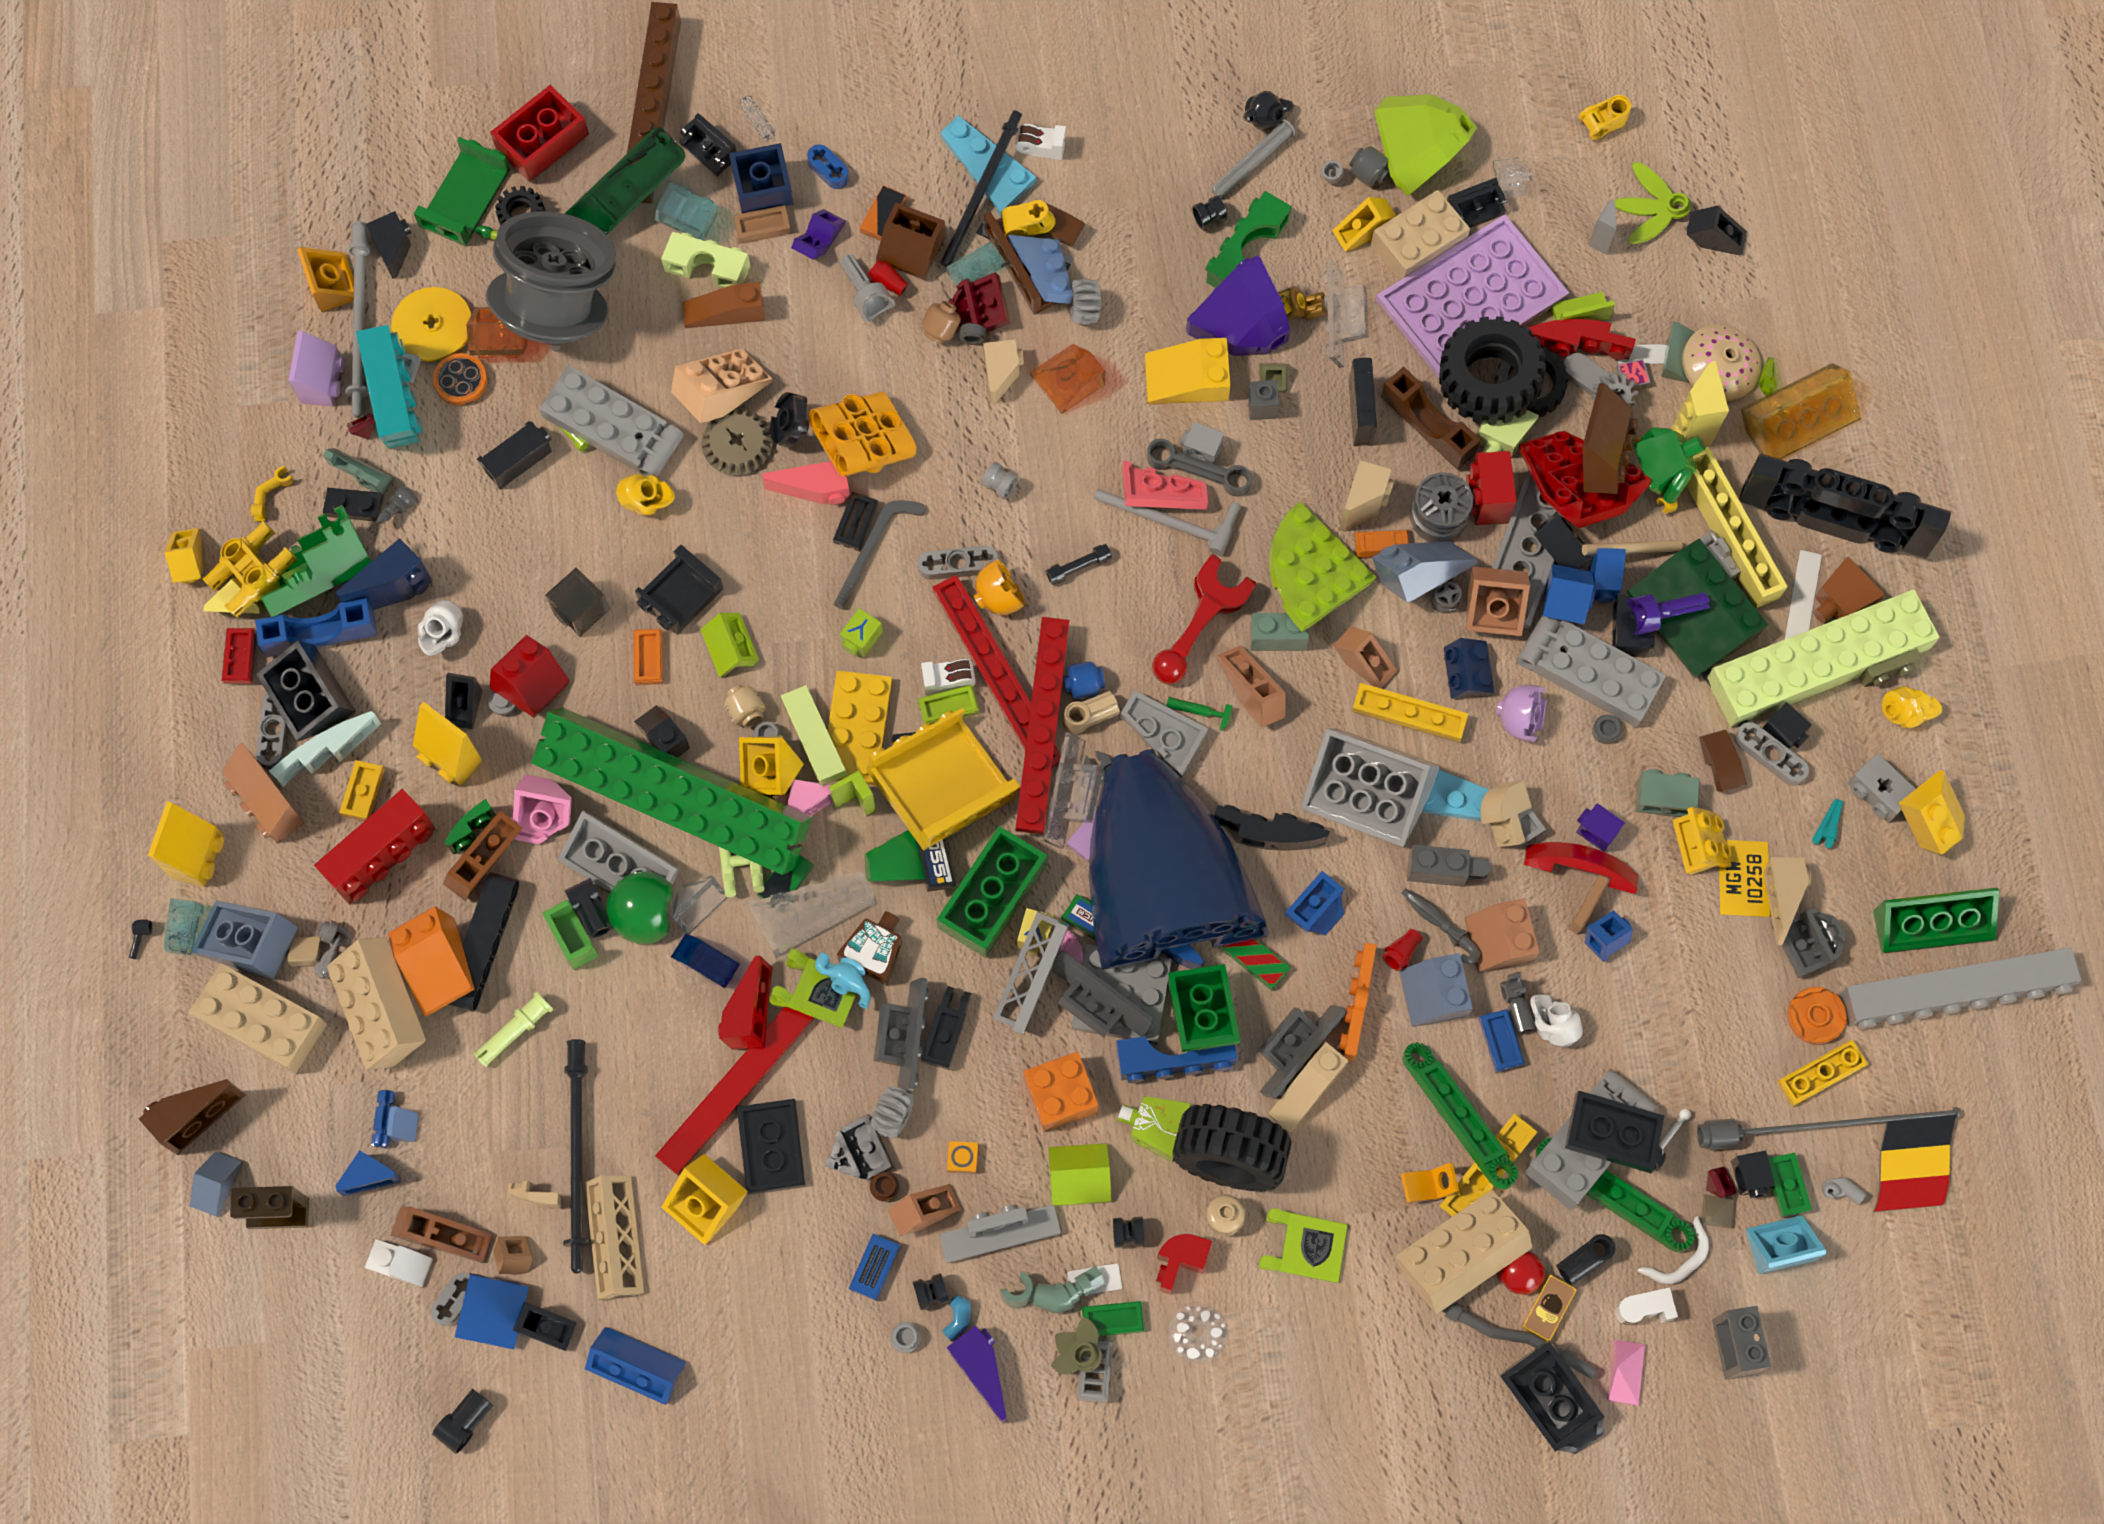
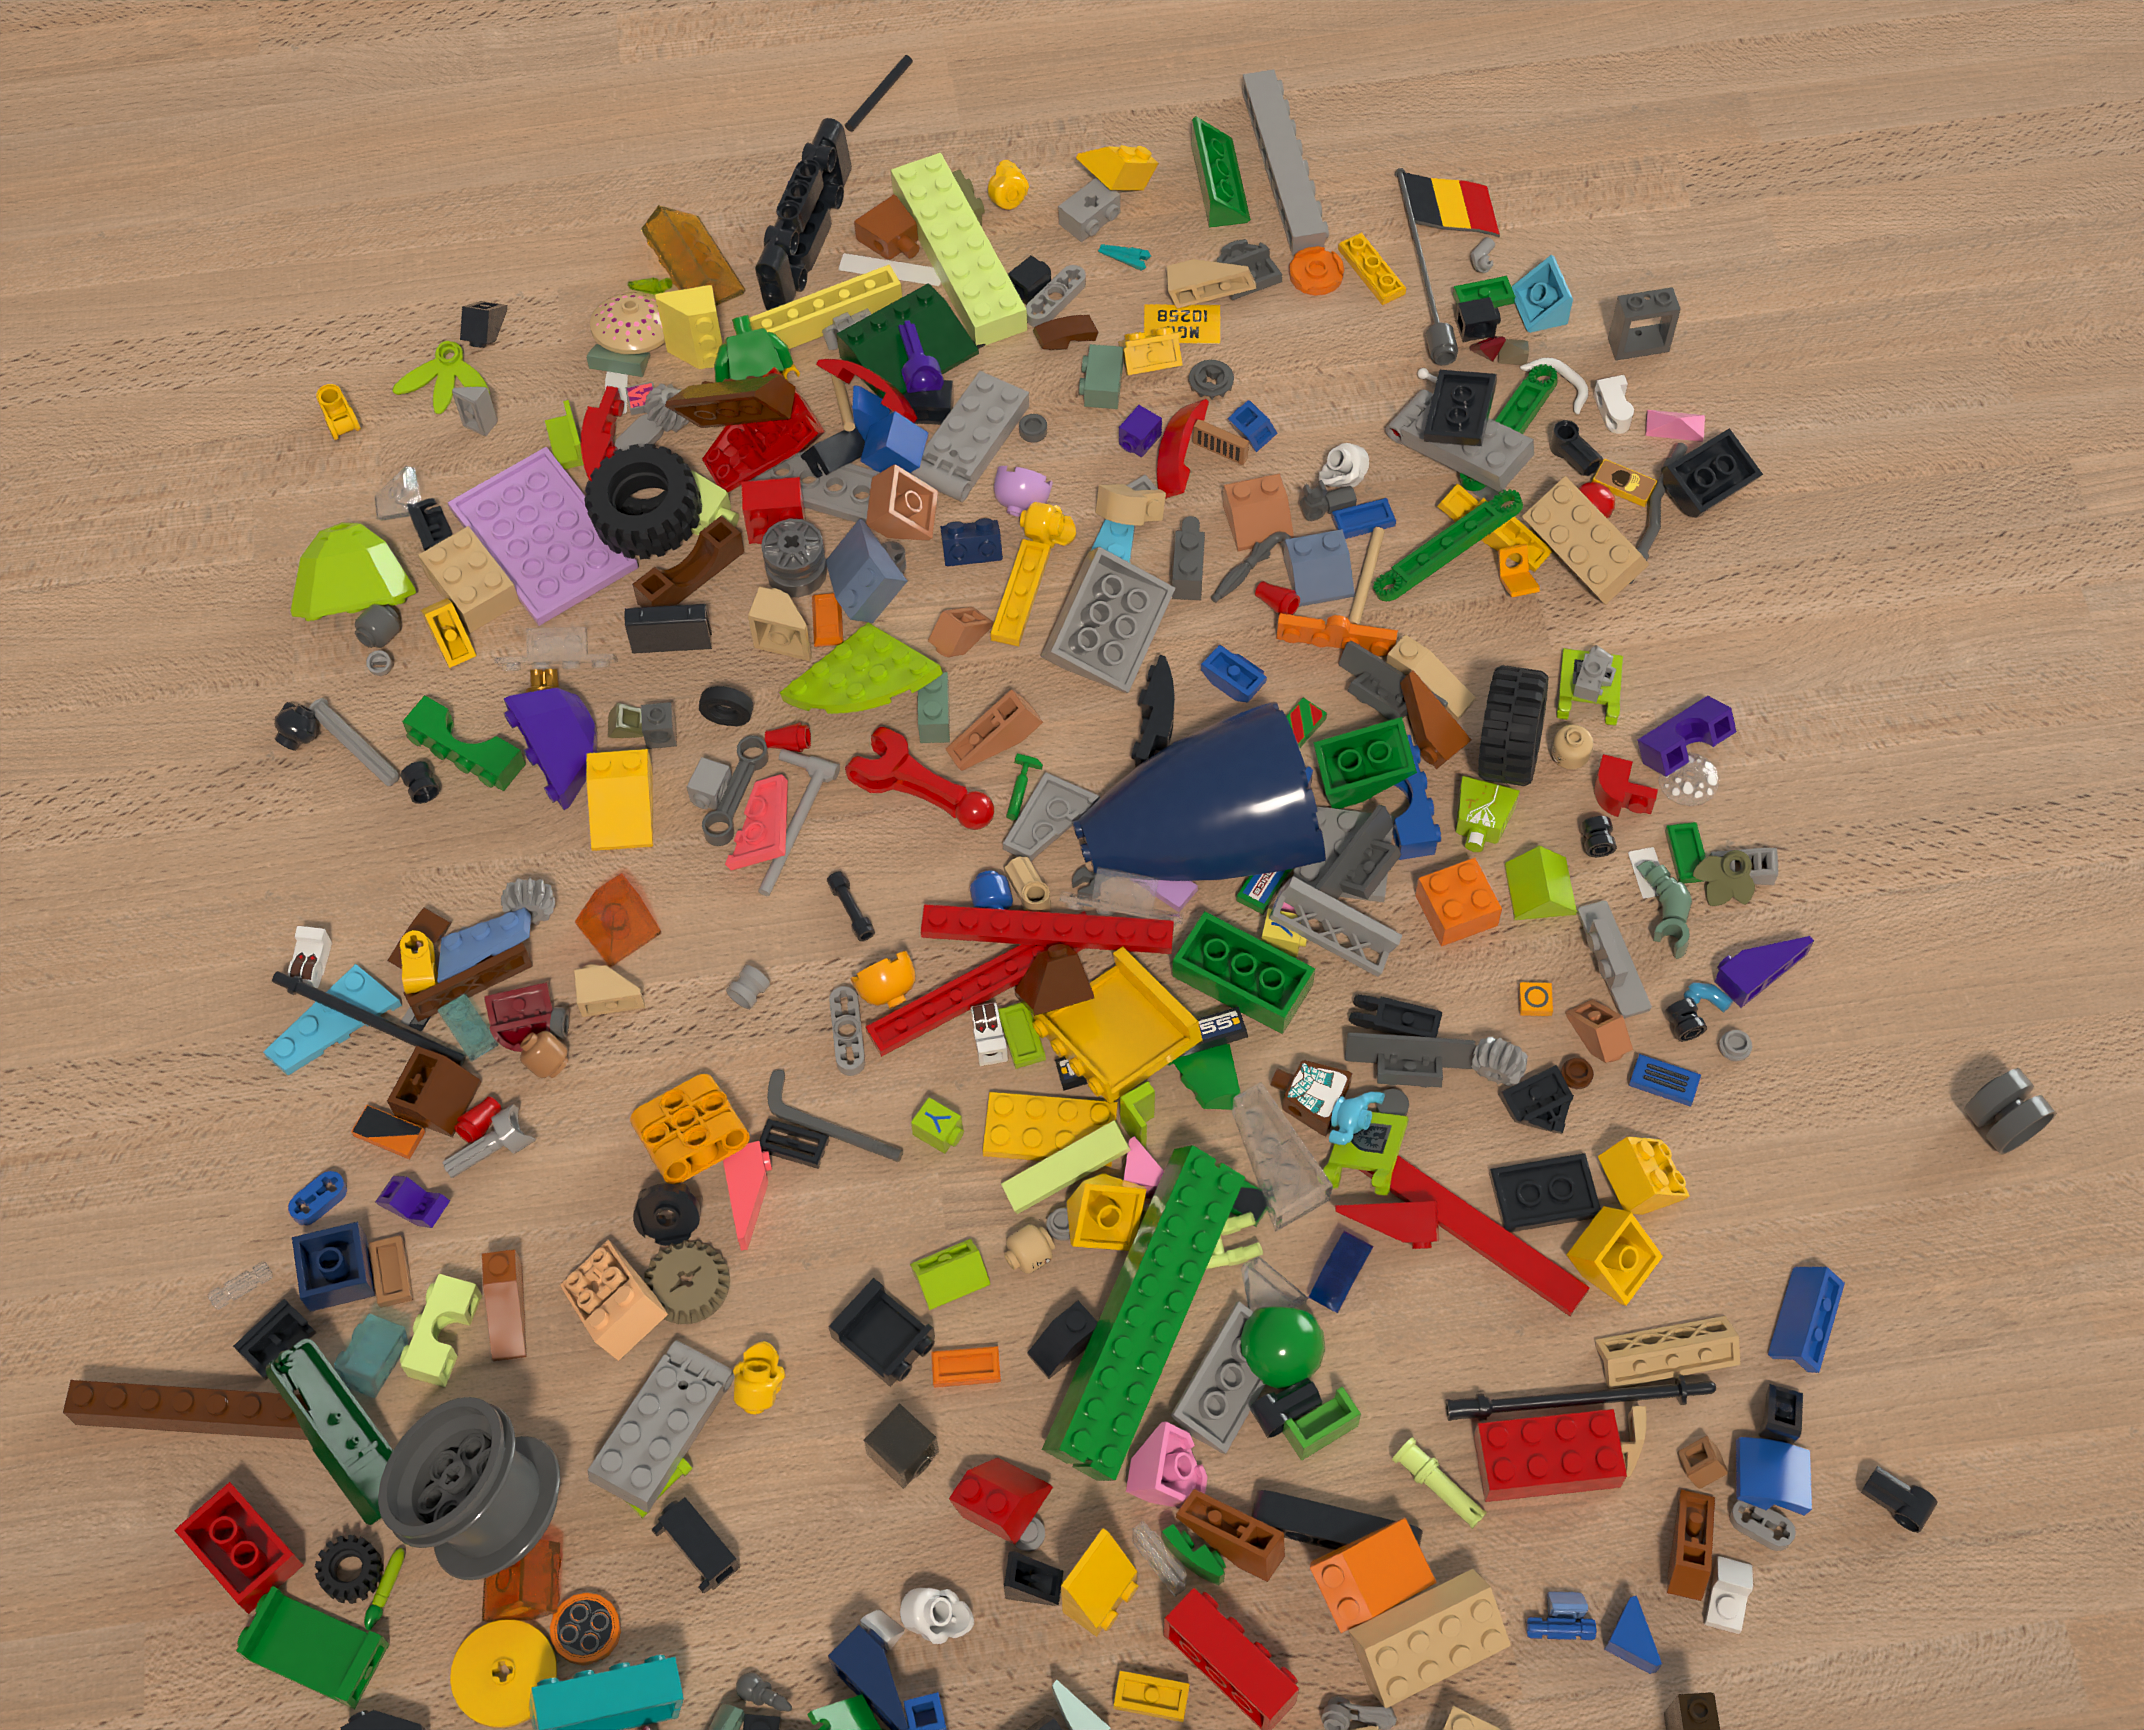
camera: 90 degrees left, 10 degrees down
(436, 589) = (883, 1626): none -> white slope
(466, 797) = (1154, 1552): none -> clear plate
(525, 1121) = (1549, 1455): none -> red brick
(777, 1234) = (1643, 1175): none -> yellow slope
(862, 1020) = (1394, 1103): none -> dark grey tile
(985, 727) = (1054, 981): none -> reddish brown slope
(1227, 1307) = (1704, 722): none -> dark purple arch
(1243, 1085) = (1433, 726): none -> dark orange slope
(1251, 511) = (791, 737): none -> red cone
(1279, 453) = (714, 697): none -> black tyre
(1311, 1246) = (1593, 674): none -> light grey piece
(1431, 1038) = (1366, 575): none -> tan bar
(1483, 736) = (1047, 524): none -> yellow head
(1618, 590) = (893, 398): none -> red slope
(1671, 888) = (1213, 369): none -> dark grey gear
(2033, 586) = (878, 93): none -> black bar

